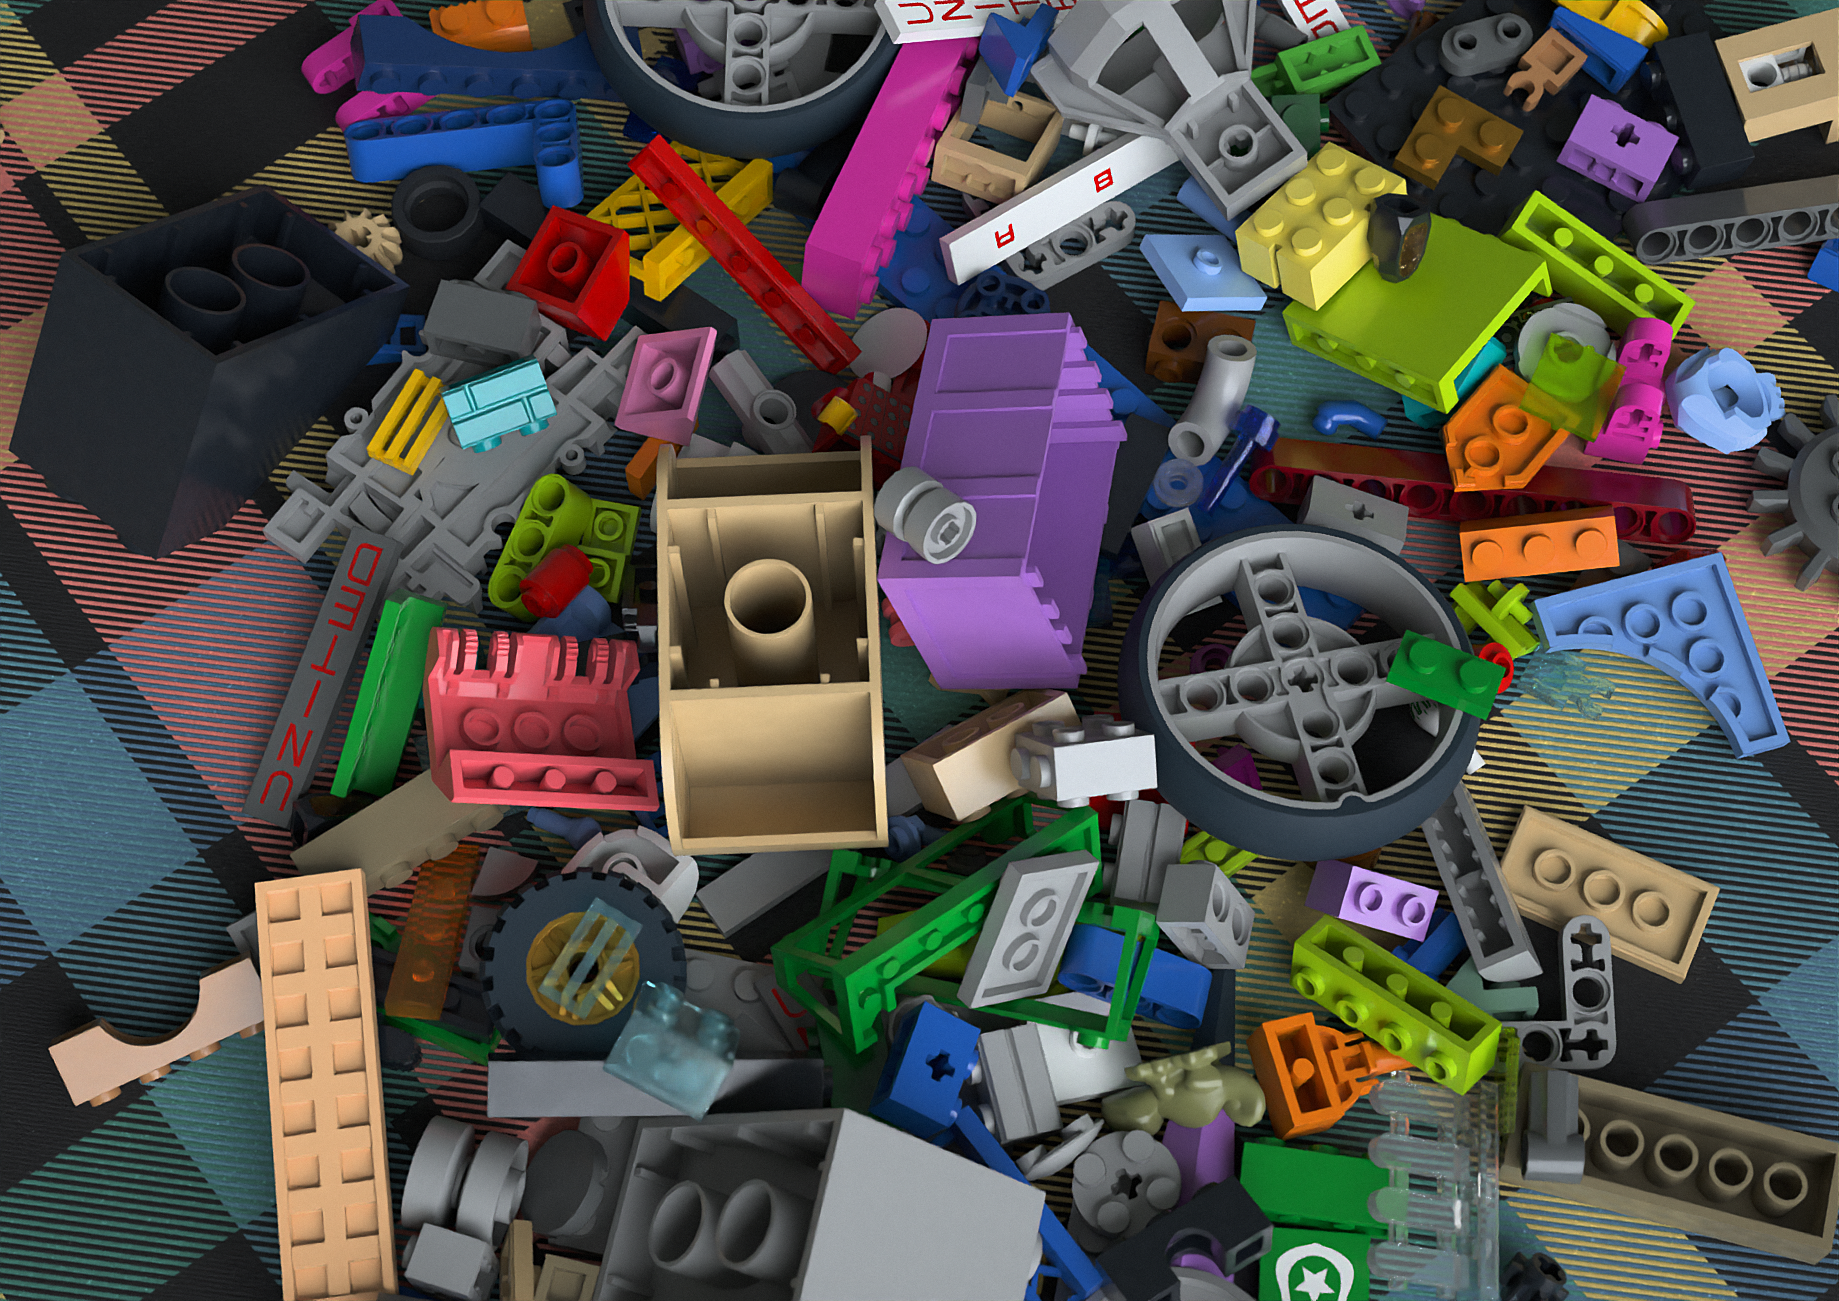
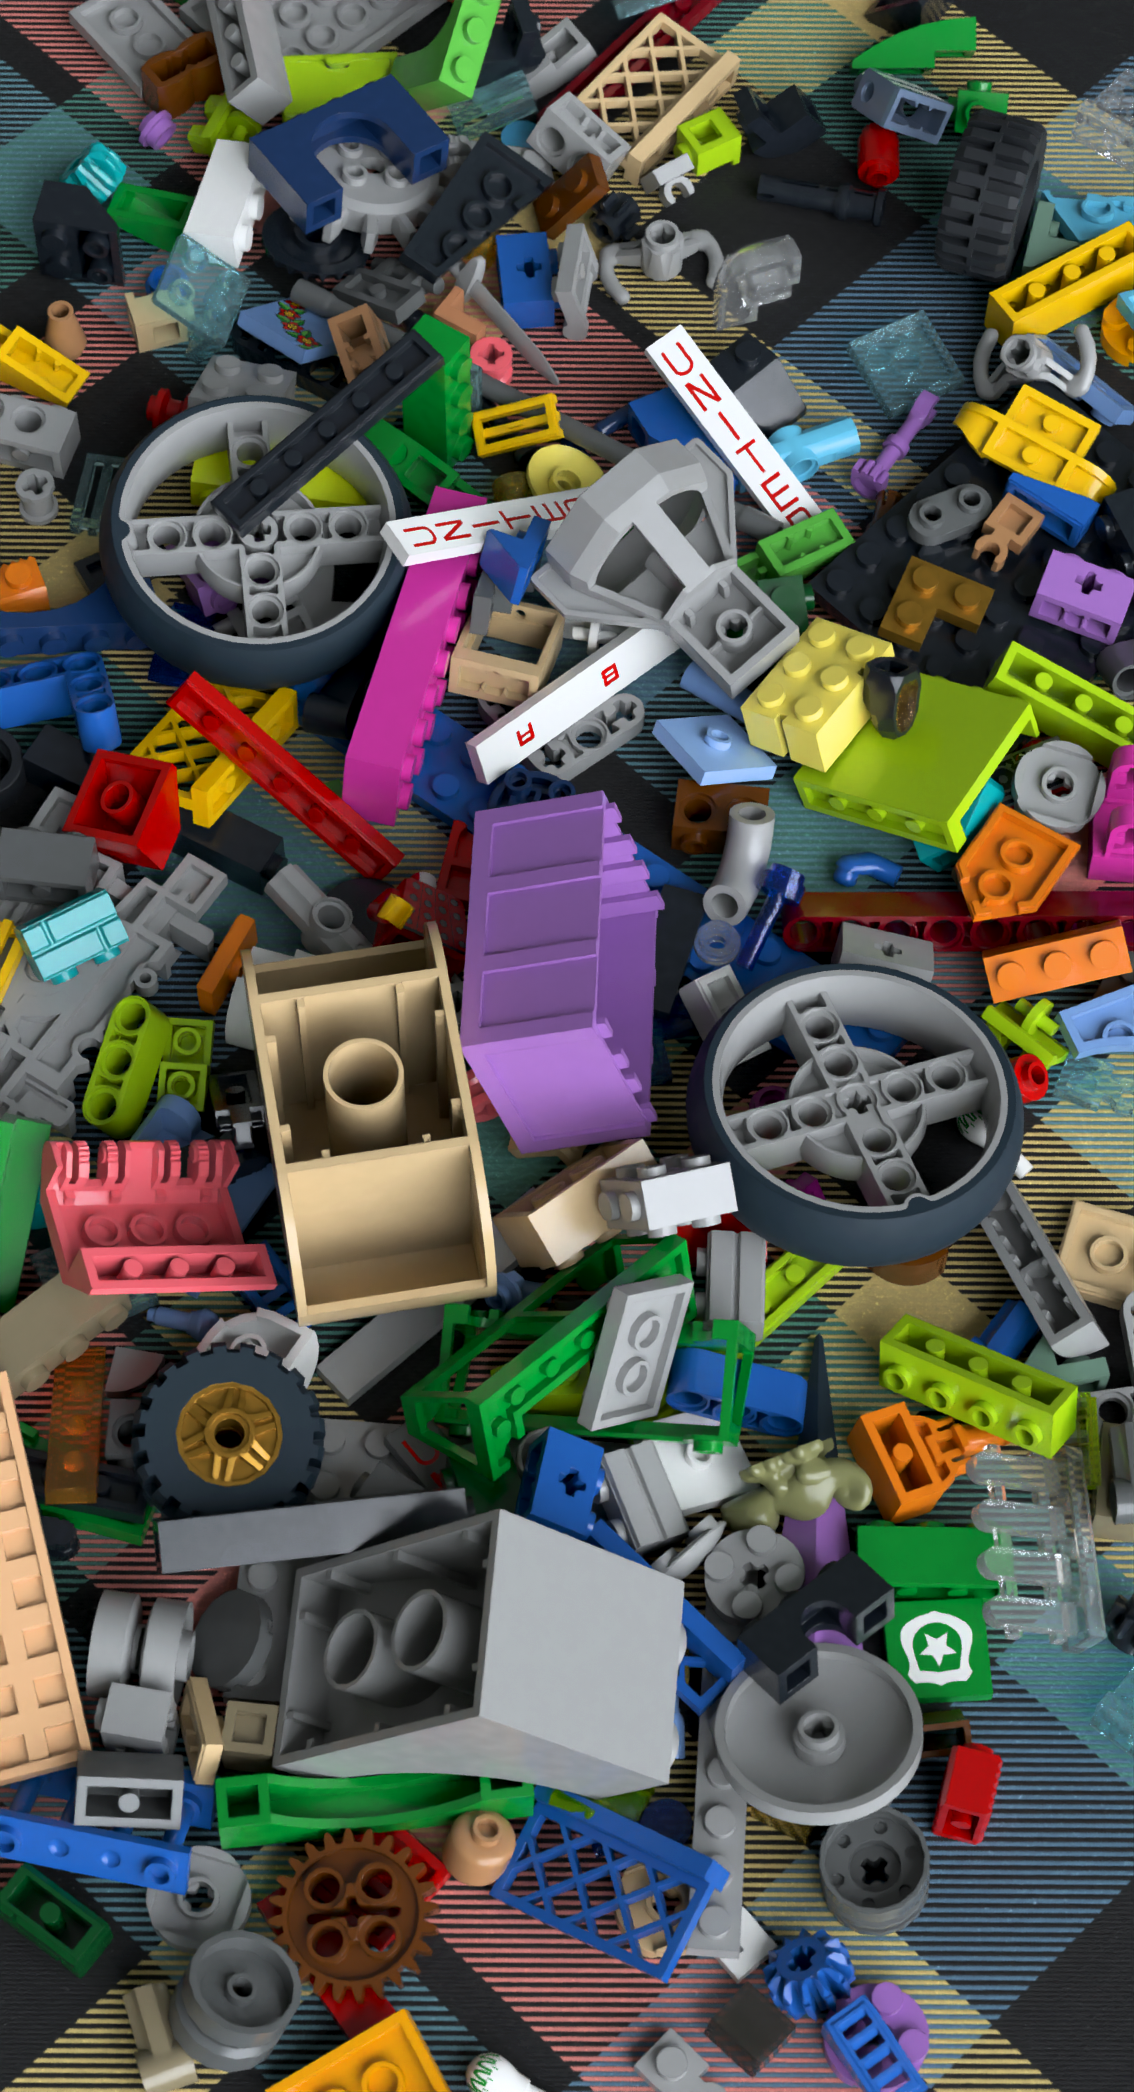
camera: 10 degrees left, 5 degrees down
(555, 581) = (148, 1094): red brick -> none
(614, 918) = (254, 1384): clear light blue tile -> none
(667, 384) = (227, 901): bright pink slope -> none
(674, 1049) = (327, 1494): clear light blue bracket -> none
(889, 342) = (429, 844): white sticker -> none
(925, 514) = (497, 982): light grey wheel -> none
(1205, 915) = (795, 1327): light grey brick -> none
(1371, 899) = (945, 1295): medium lavender brick -> none
(1446, 674) = (987, 1081): green plate -> none
(1572, 387) = (1069, 816): clear neon green piece -> none

